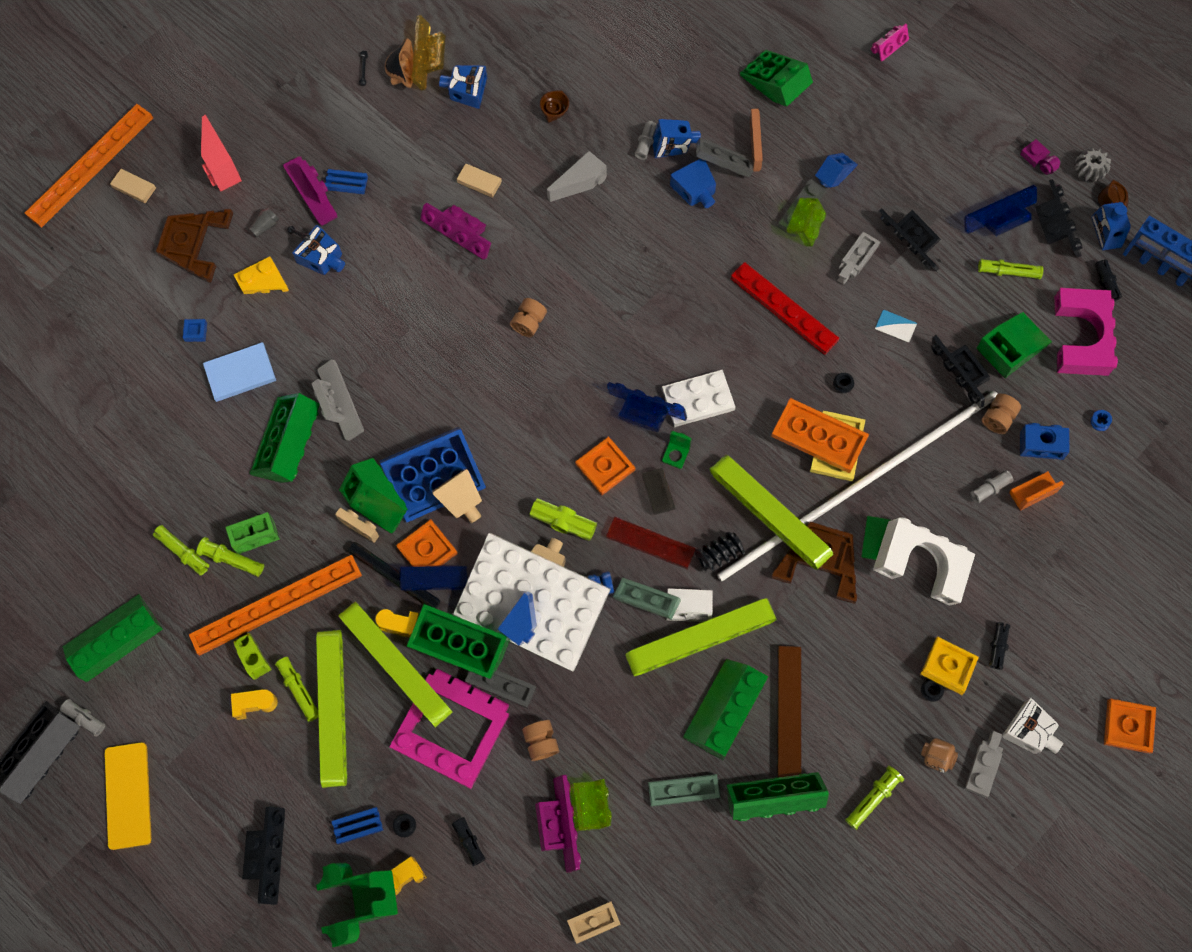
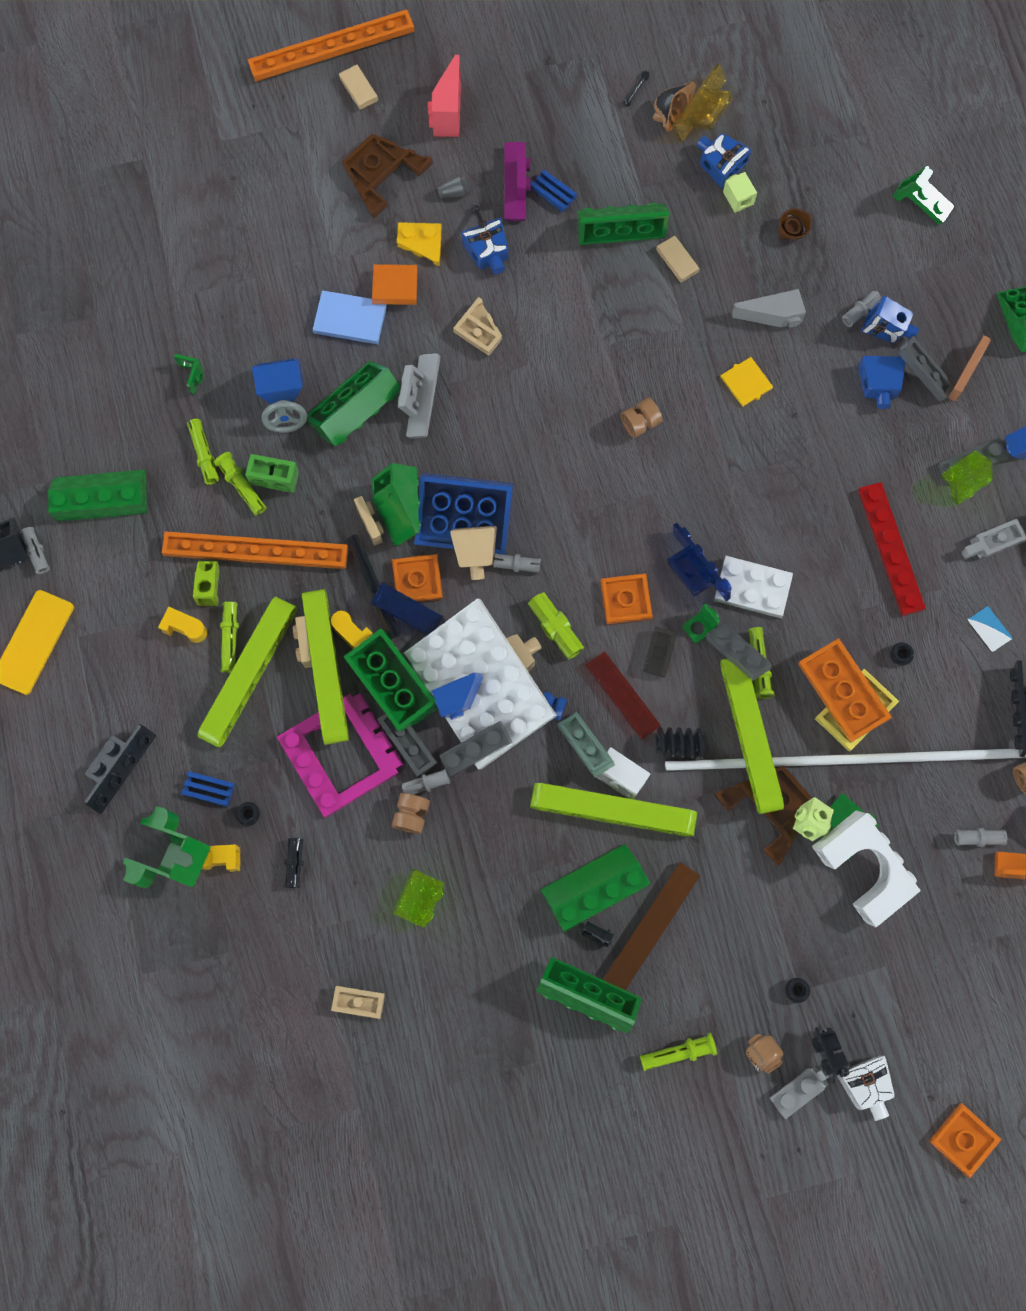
camera: 30 degrees right, 5 degrees up
(137, 490) = (196, 374): none -> green bracket
(194, 330) = (333, 255): blue plate -> none
(216, 458) = (279, 385): none -> blue piece
(261, 324) = (394, 284): none -> orange tile
(352, 321) = (478, 328): none -> tan wing
(369, 663) = (300, 633): none -> tan plate
(418, 176) = (622, 223): none -> green slope
(458, 227) = (630, 293): magenta bracket -> none
(495, 103) = (739, 192): none -> yellowish green brick
(500, 488) = (517, 563): none -> light grey pin
(537, 708) = (426, 783): none -> light grey axle
(557, 824) = (378, 897): magenta bracket -> none
(561, 655) = (475, 749): none -> dark grey plate
(592, 244) = (746, 381): none -> yellow piece
(639, 29) = (924, 195): none -> bracket
(684, 790) = (511, 937): sand green tile -> none
(720, 453) = (738, 651): none -> dark grey plate
(747, 461) = (764, 691): none -> lime pin
(751, 744) = (597, 934): none -> black pin
(860, 548) = (813, 819): none -> yellowish green brick
(949, 665) = (828, 978): yellow tile -> none
(996, 729) = (826, 1044): none -> black hinge
(999, 645) = (888, 989): black pin -> none

